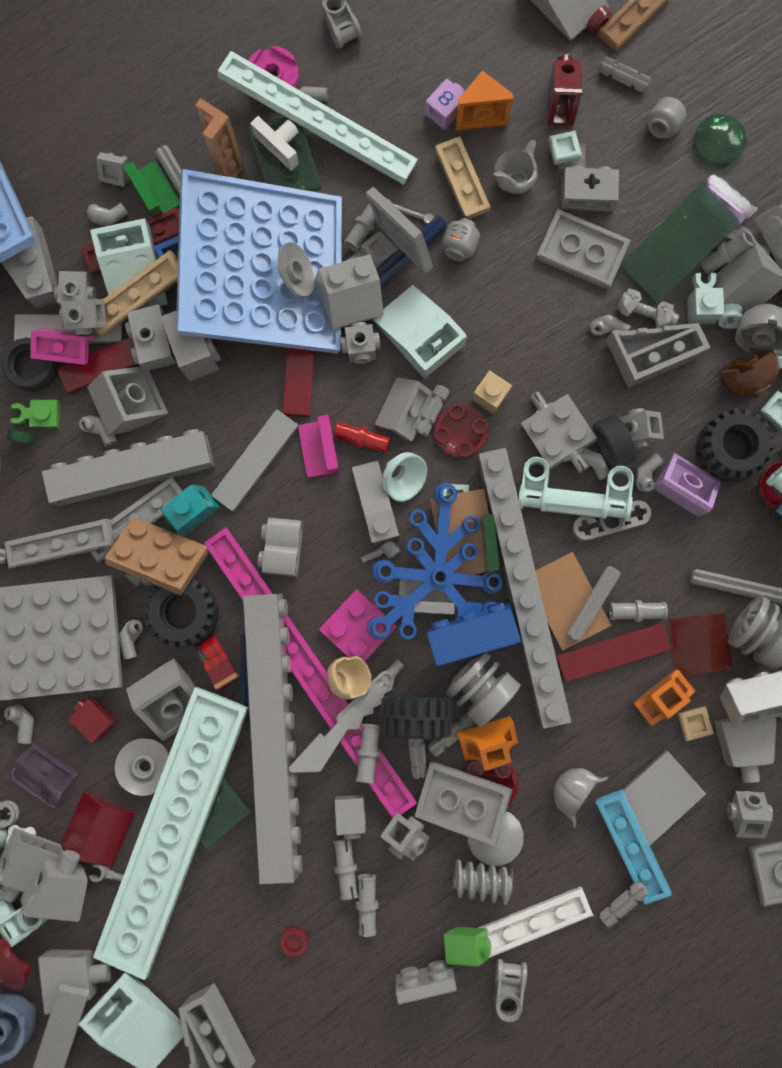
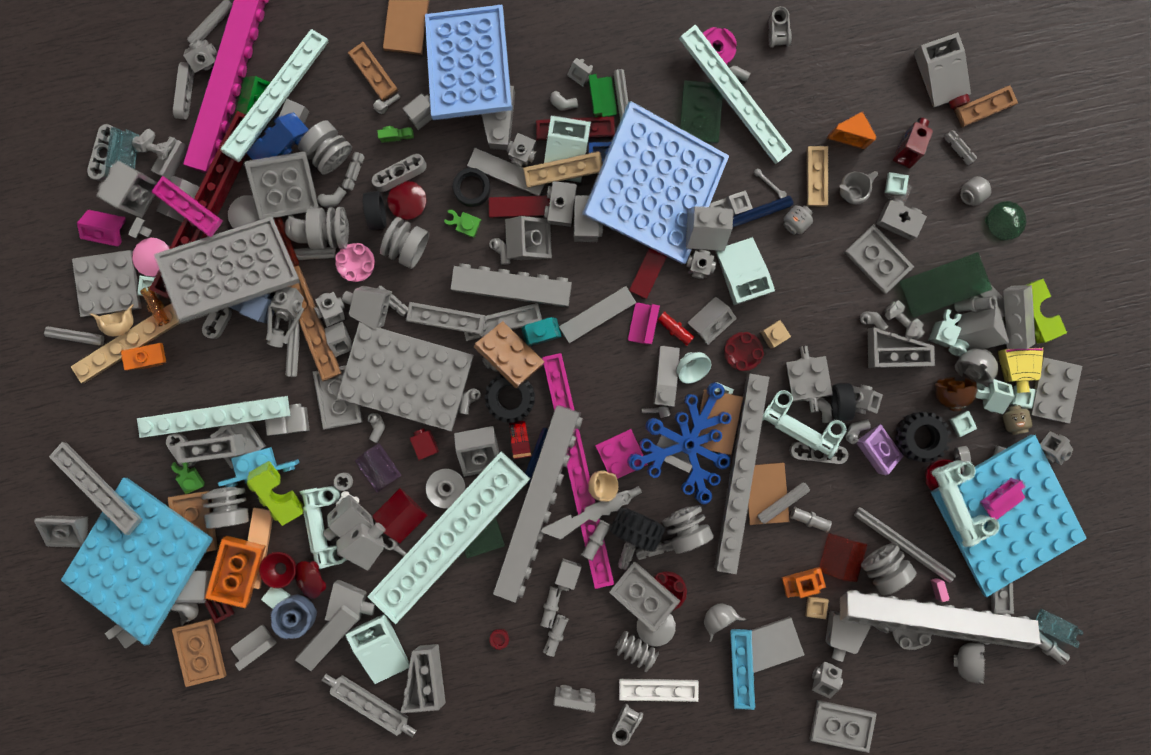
camera: 20 degrees right, 5 degrees up
(21, 437) = (447, 234): dark green tile -> none
(60, 345) = (499, 184): dark pink panel -> none
(82, 314) = (523, 171): light grey brick -> none
(220, 140) = (664, 90): nougat fence -> none
(277, 140) = (701, 100): white tile -> none
(281, 548) = (592, 381): light grey brick -> none
(296, 269) = (678, 199): light grey dish -> none
(363, 226) = (736, 181): light grey pin -> none
(399, 230) = (759, 199): light grey tile -> none
(405, 837) = (598, 603): light grey brick -> none
(432, 410) = (731, 328): light grey axle -> none
(443, 103) = (828, 118): lavender brick -> none
(467, 946) = (610, 687): bright green brick -> none
(473, 633) = (697, 492): blue wedge -> none
(489, 542) = (732, 435): dark green tile -> none
(489, 743) = (677, 566): orange brick -> none
(613, 652) = (783, 539): dark red tile -> none
(624, 904) = (721, 702): light grey axle -> none
(731, 199) = (993, 266): clear purple panel -> none

